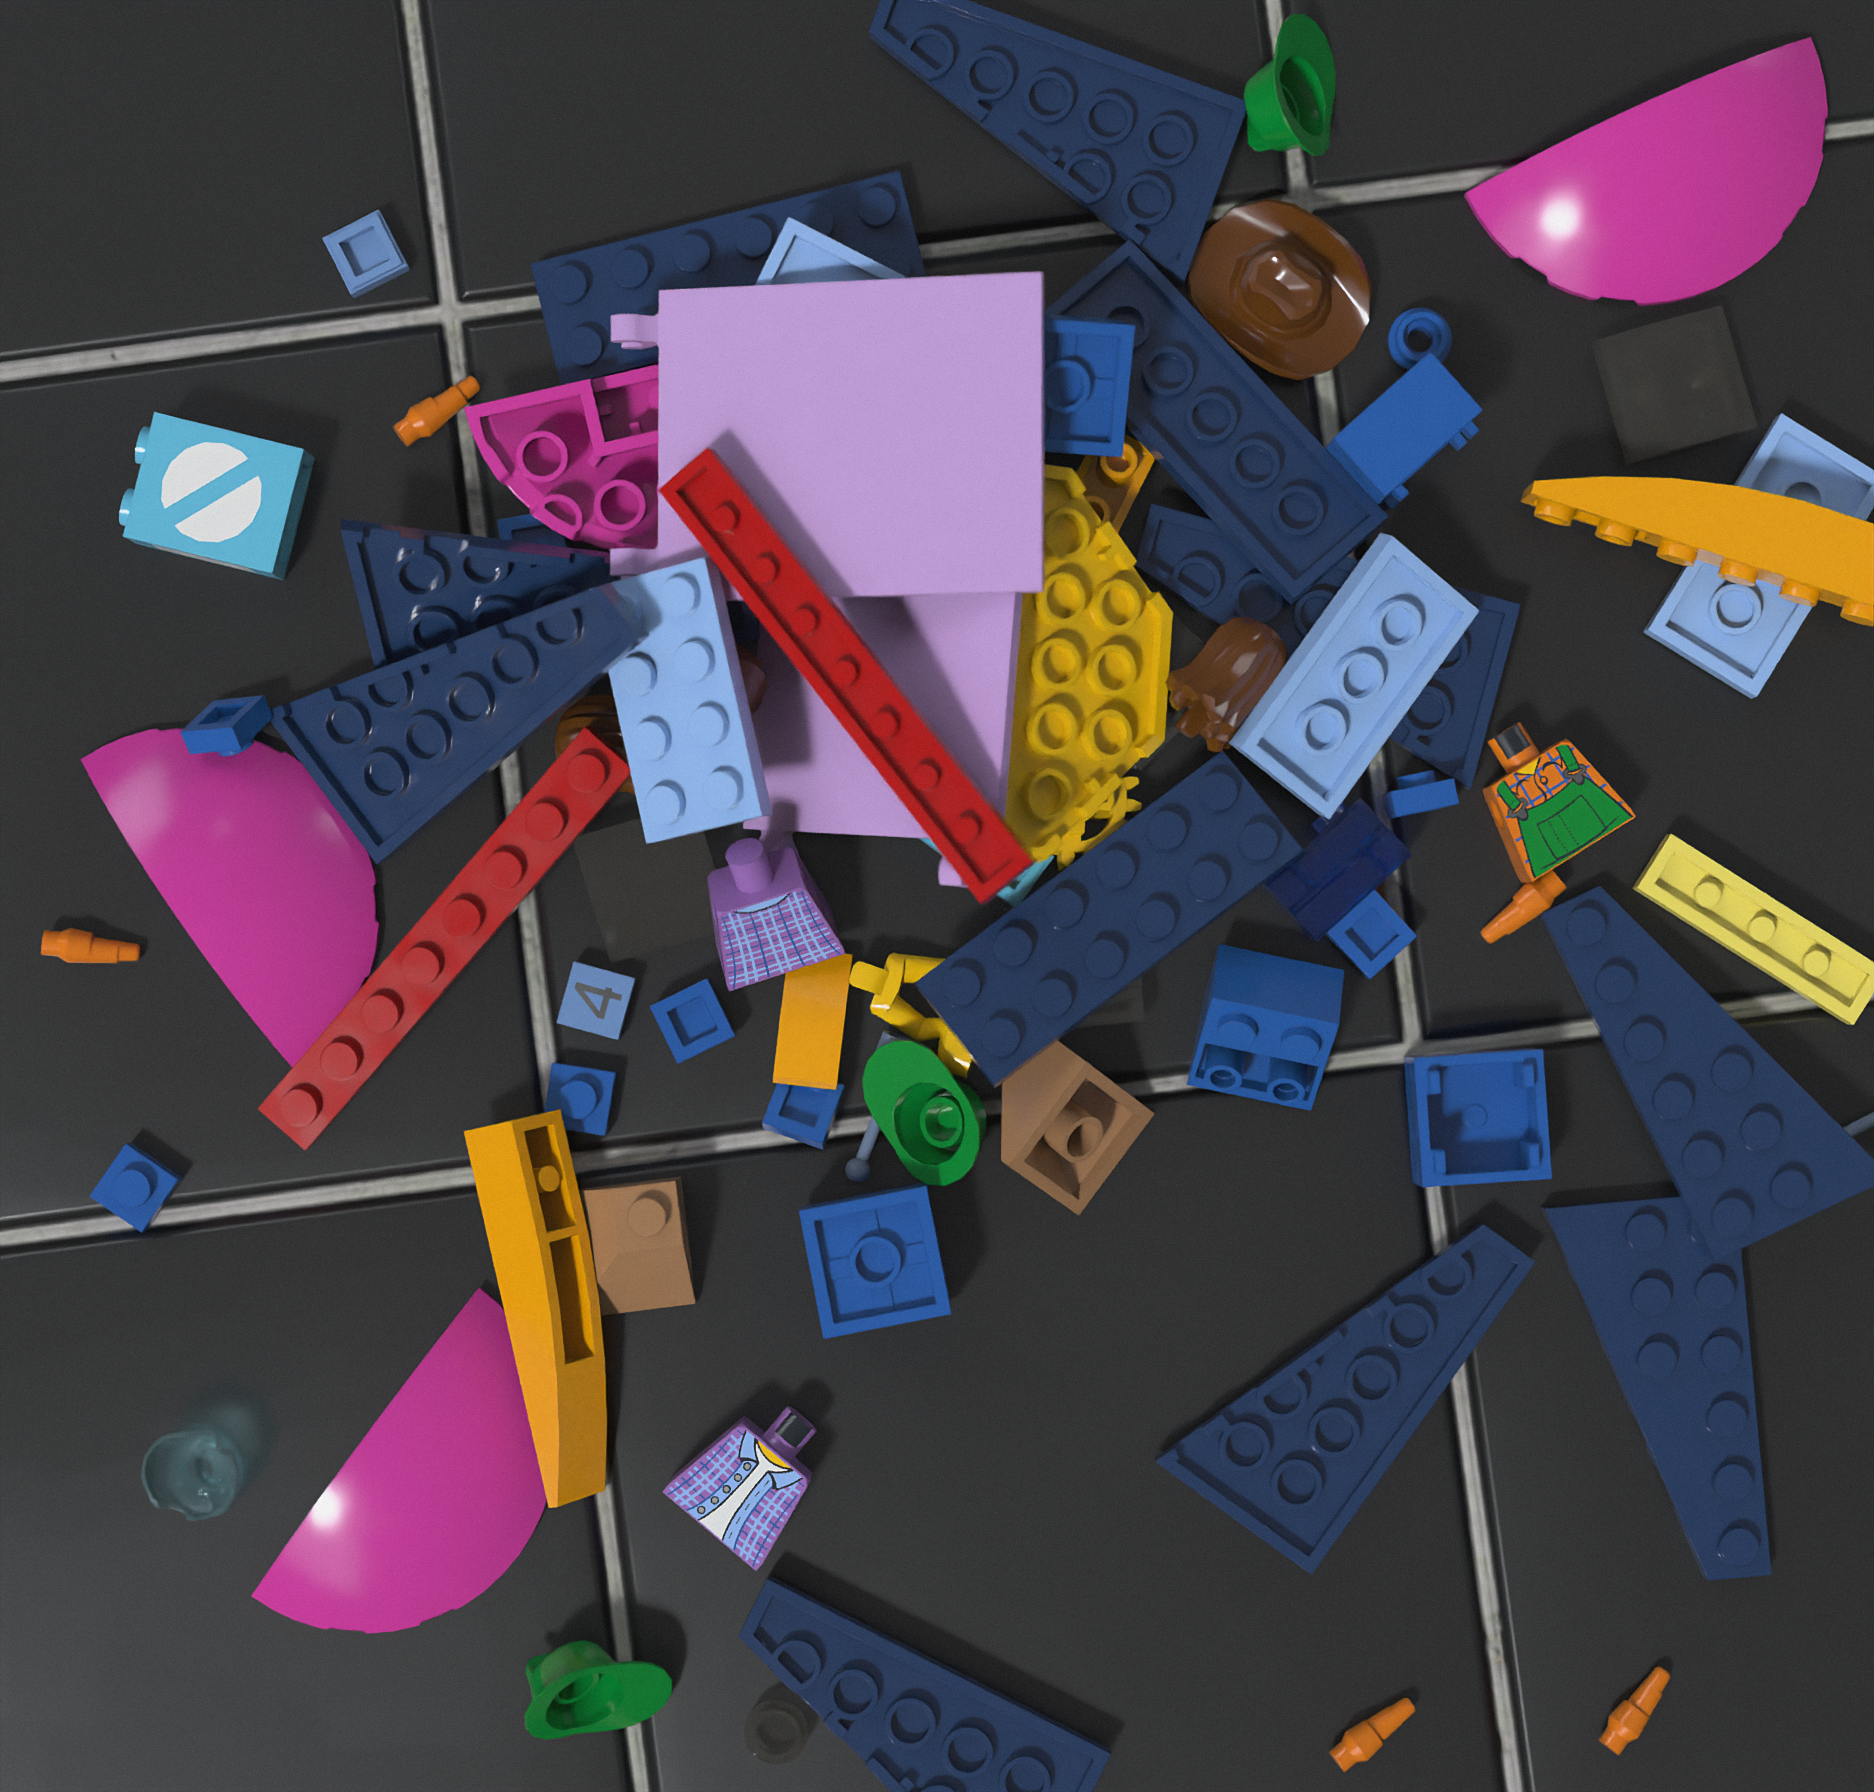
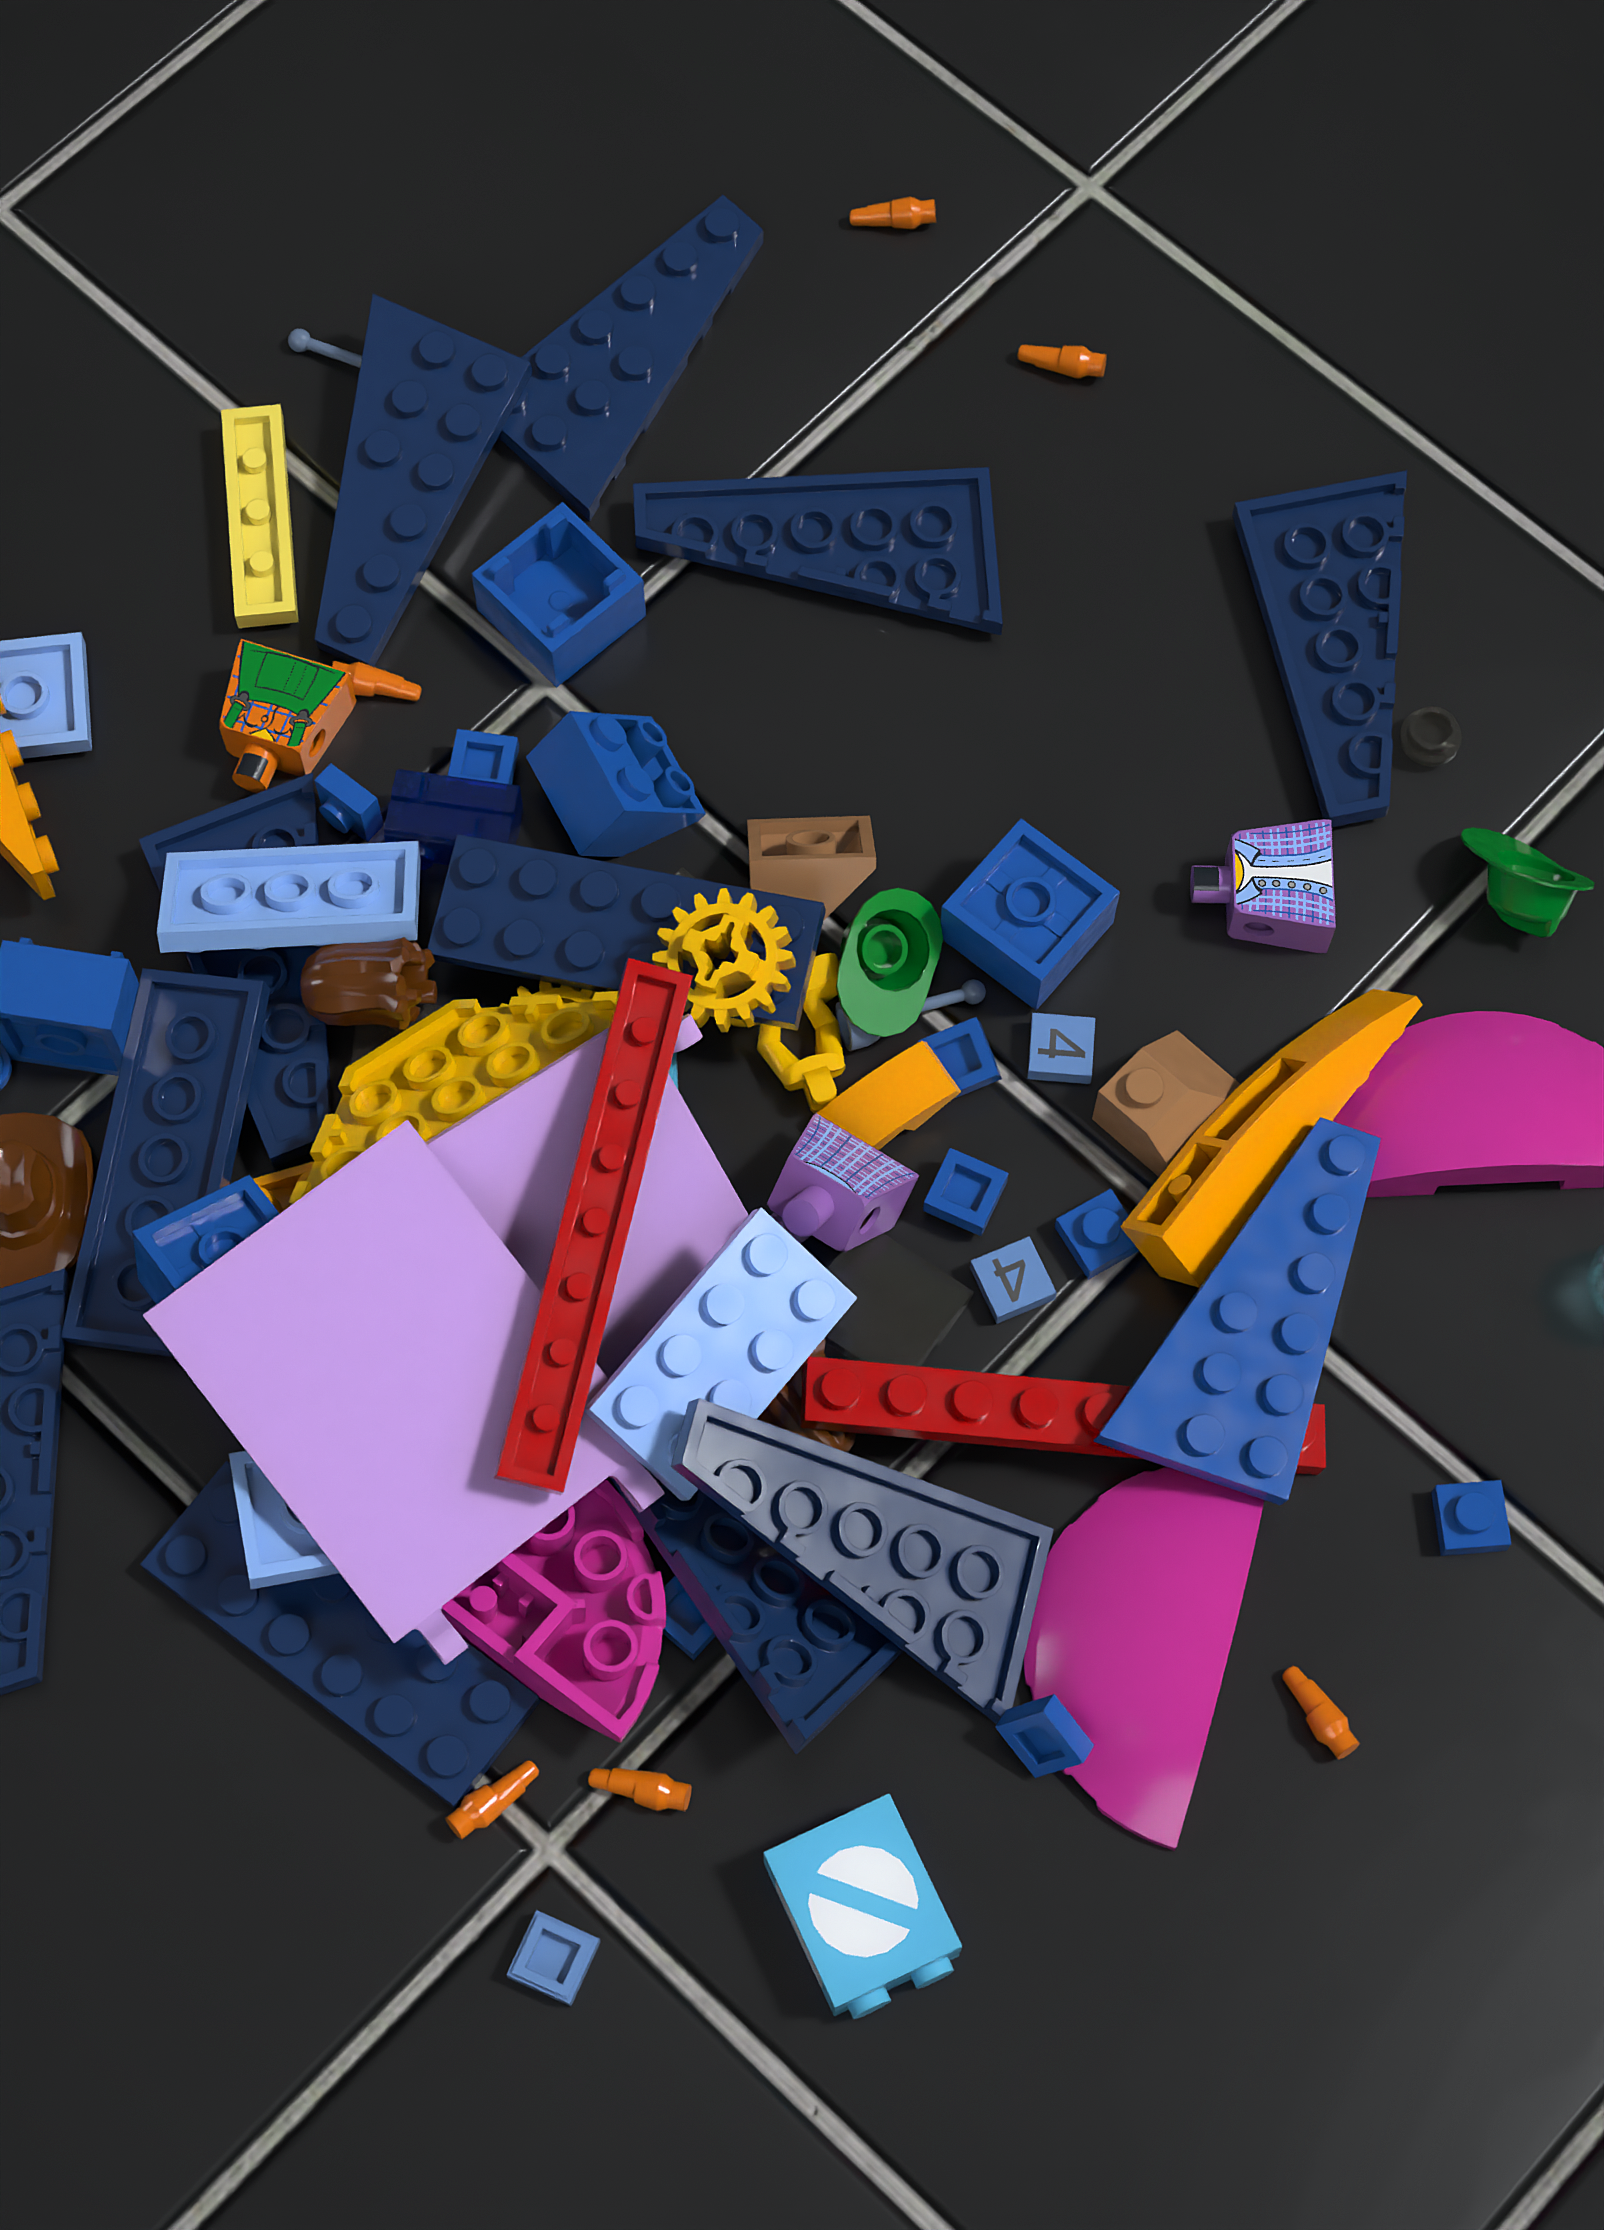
camera: 130 degrees left, 20 degrees down
(384, 1127) = (1248, 1351): none -> blue wing
(514, 292) = (488, 1802): none -> orange piece
(753, 1198) = (1061, 1048): none -> medium blue tile
(972, 973) = (734, 935): none -> yellow gear

